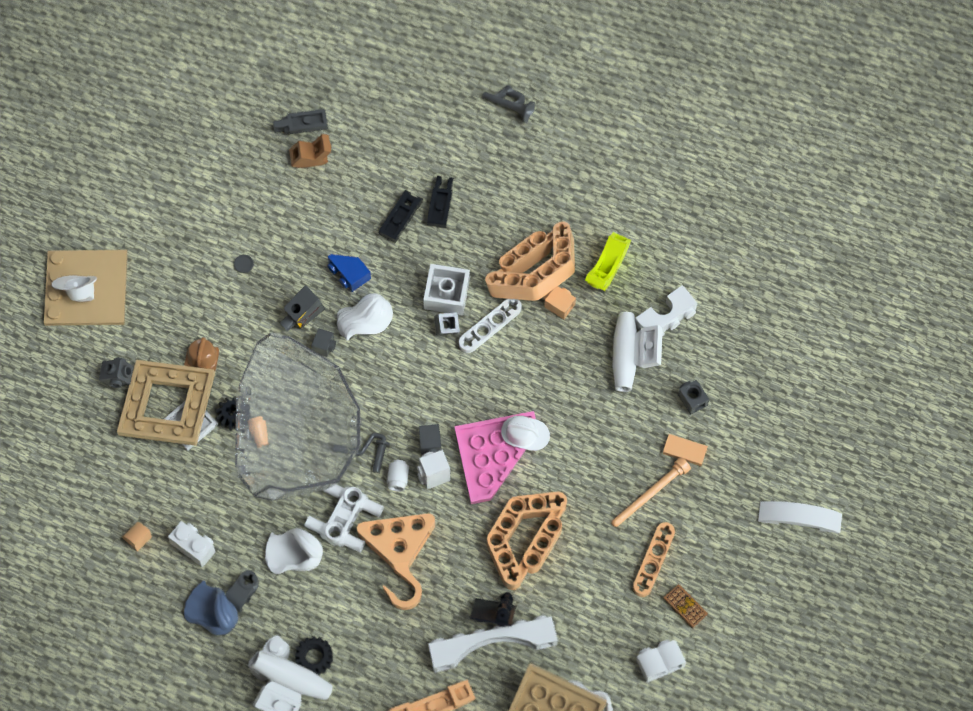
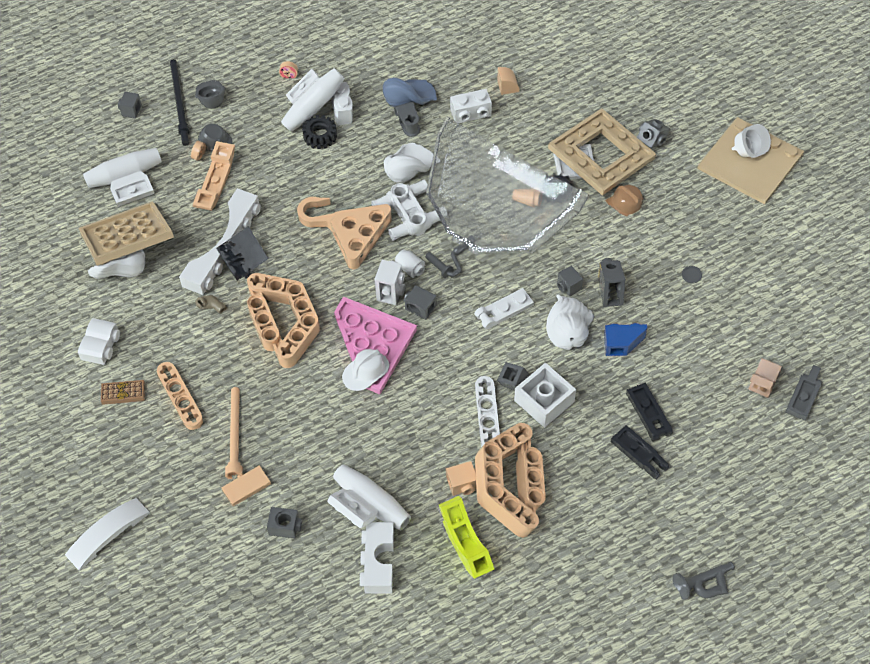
camera: 130 degrees right, 10 degrees down
(384, 377) = (504, 308): none -> white plate
(554, 607) = (210, 302): none -> dark tan arm

